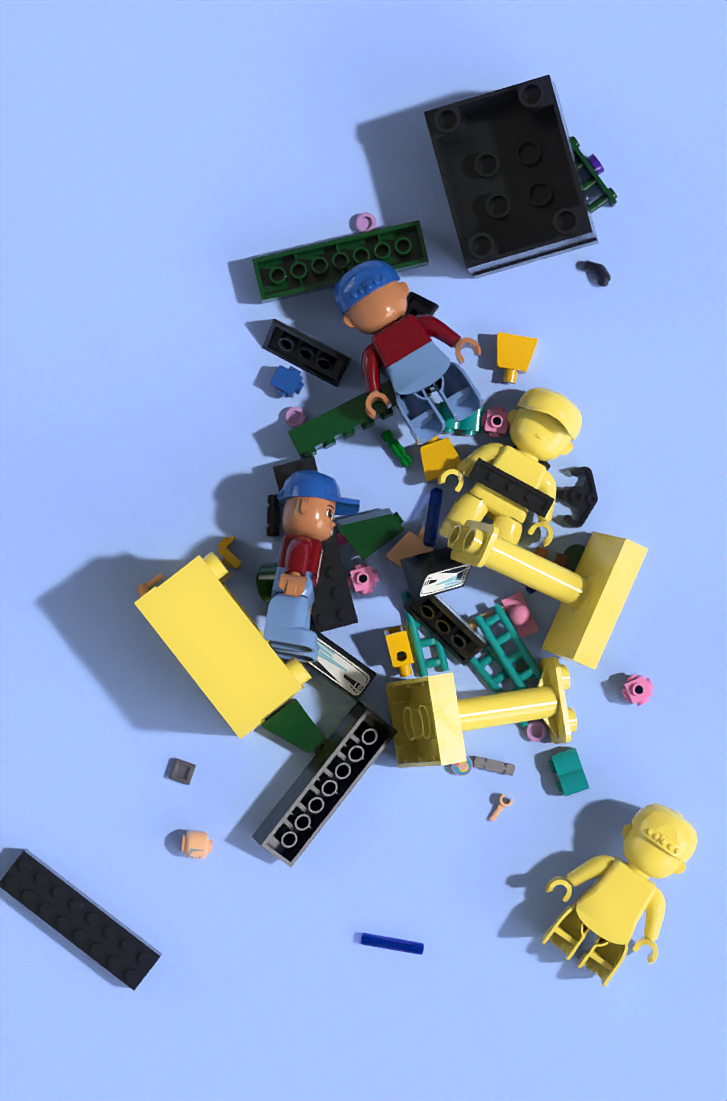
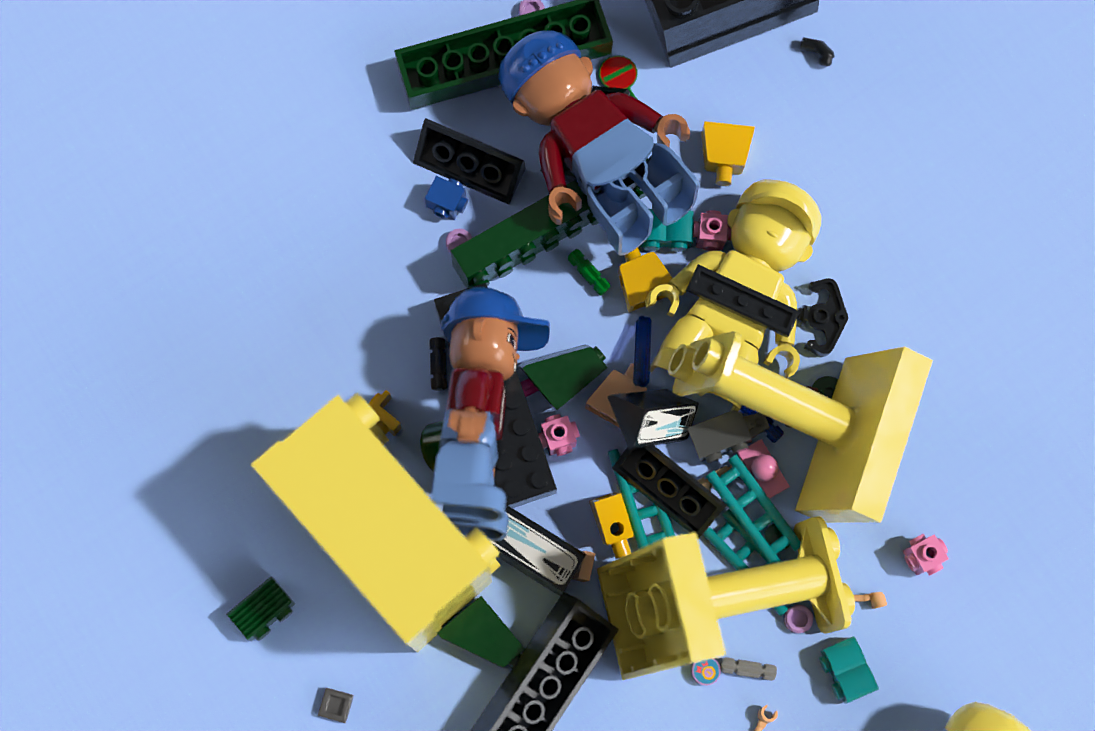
camera: 10 degrees left, 10 degrees down
(129, 697) = (261, 610): none -> dark green brick
(376, 682) = (584, 571): none -> light nougat tile
(433, 283) = (618, 73): none -> red piece
(488, 587) = (726, 433): none -> dark grey hinge
(597, 720) = (877, 599): none -> light nougat hand

